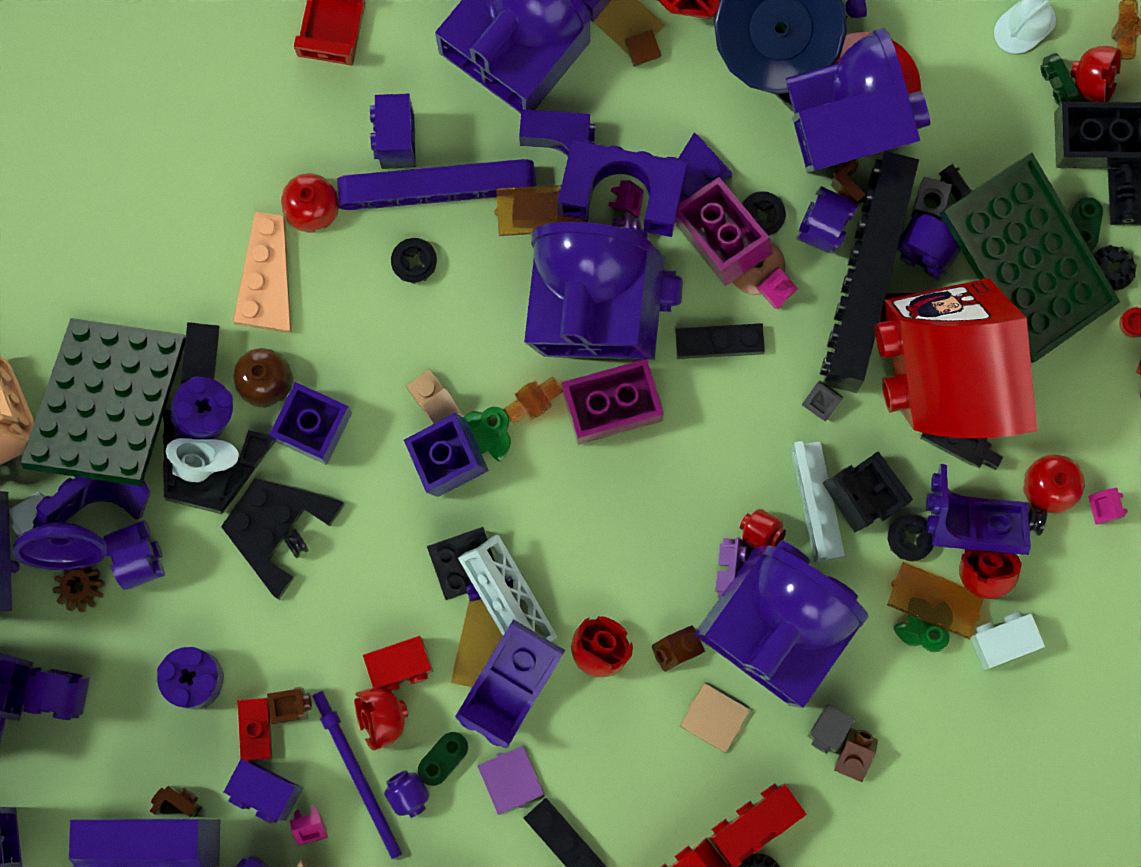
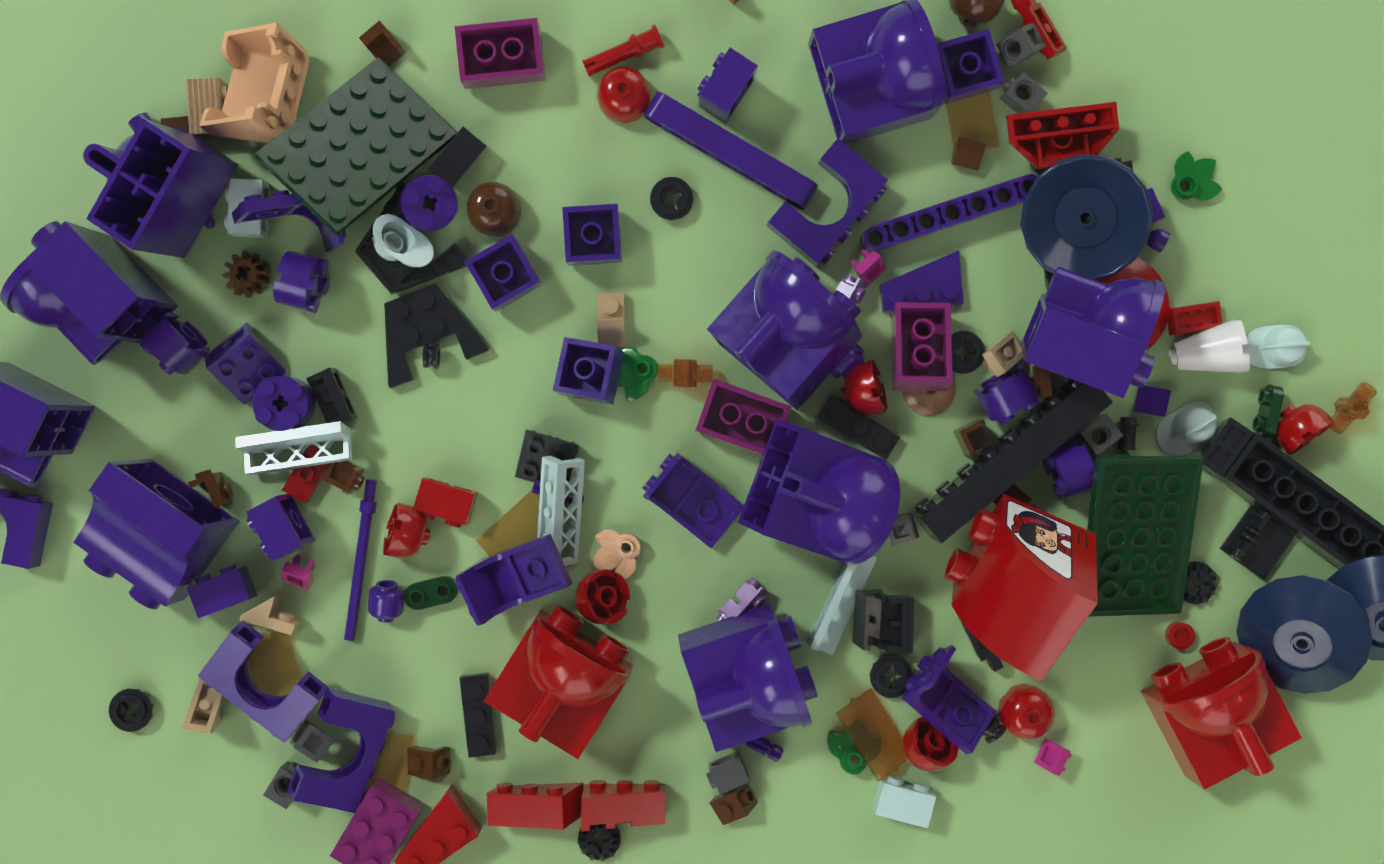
camera: 35 degrees right, 10 degrees up
(59, 547) = (245, 237): dark purple dish -> none
(66, 303) = (382, 44): none -> reddish brown panel
(128, 670) = (242, 363): none -> dark purple bracket
(178, 239) = (500, 53): none -> magenta brick
(218, 705) = (292, 438): none -> light aqua fence
(229, 645) = (331, 396): none -> black hinge
(263, 289) = (543, 137): light nougat wing -> none
(291, 155) = (635, 46): none -> red pin
(366, 336) = (592, 234): none -> dark purple brick
(510, 780) = (470, 643): medium lavender piece -> none
(527, 208) = (794, 230): clear orange piece -> none
(585, 605) = (613, 555): none -> light nougat plate
(592, 163) = (859, 222): dark purple arch -> none
(617, 746) = (561, 681): none -> red piece
(618, 504) = (692, 499): none -> dark purple bracket
(671, 94) = (939, 220): none -> dark purple beam
(677, 648) = (659, 635): reddish brown bracket -> none
(699, 302) = (864, 389): none -> red cylinder
(714, 717) = (650, 703): tan piece -> none
(728, 413) = (822, 495): none -> dark purple piece
(762, 529) = (784, 594): red head -> none
(777, 288) = (931, 417): dark pink tile -> none
(798, 191) = (1003, 354): none -> tan slope
(824, 279) = (972, 437): none -> reddish brown panel
(842, 683) = (764, 747): none -> dark purple axle
(937, 49) = (1193, 318): none -> red plate
(955, 141) = (1152, 401): none -> dark purple slope
(973, 62) = (1213, 350): none -> white cone
(1002, 143) = (1186, 428): none -> light aqua piece
(1046, 134) = (1225, 446): none -> black hinge
(1088, 224) = (1202, 536): dark green plate -> none

